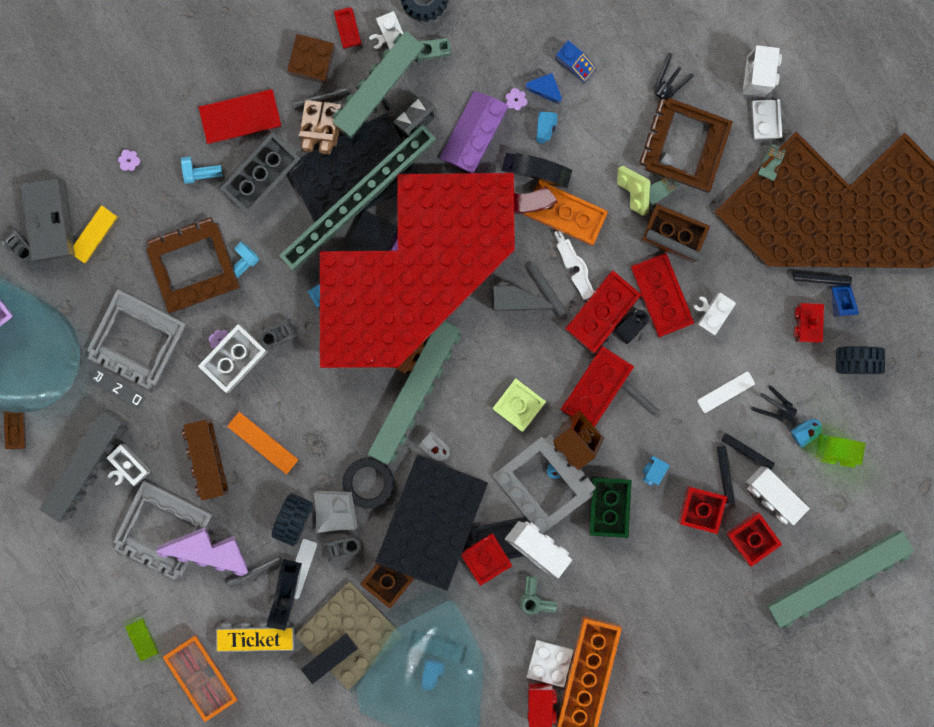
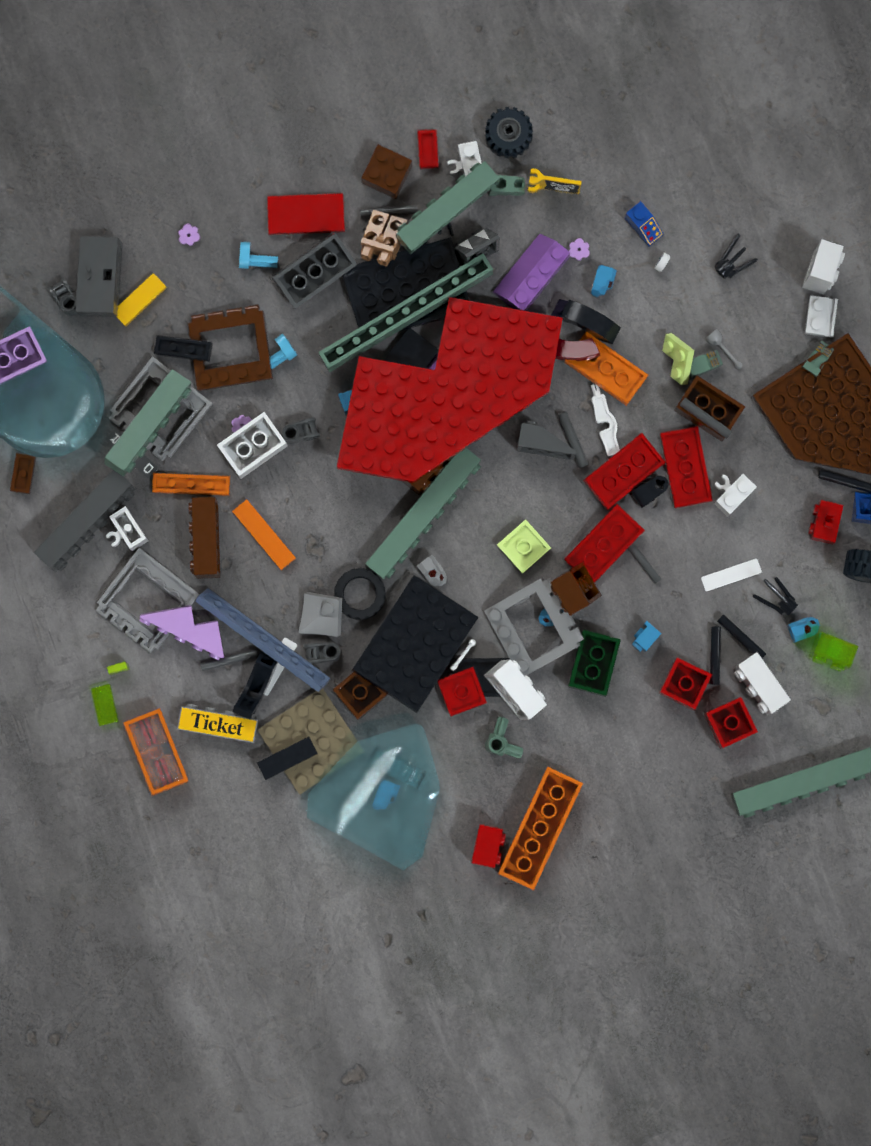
camera: 10 degrees right, 5 degrees down
(125, 359) = (147, 423): none -> sand green brick
(146, 275) = (183, 348): none -> black tile
(147, 602) = (117, 668): none -> lime tile
(181, 407) = (191, 484): none -> orange tile
(292, 519) = (278, 613): black wheel -> none
(296, 555) = (263, 640): none -> sand blue plate
(477, 39) = (552, 183): none -> yellow flag
(486, 508) = (472, 643): none -> white hinge
(545, 87) = (610, 243): blue slope -> none
(550, 663) = (504, 808): white plate -> none
(600, 96) = (662, 262): none -> white tile
(711, 152) = (760, 337): reddish brown hinge -> none

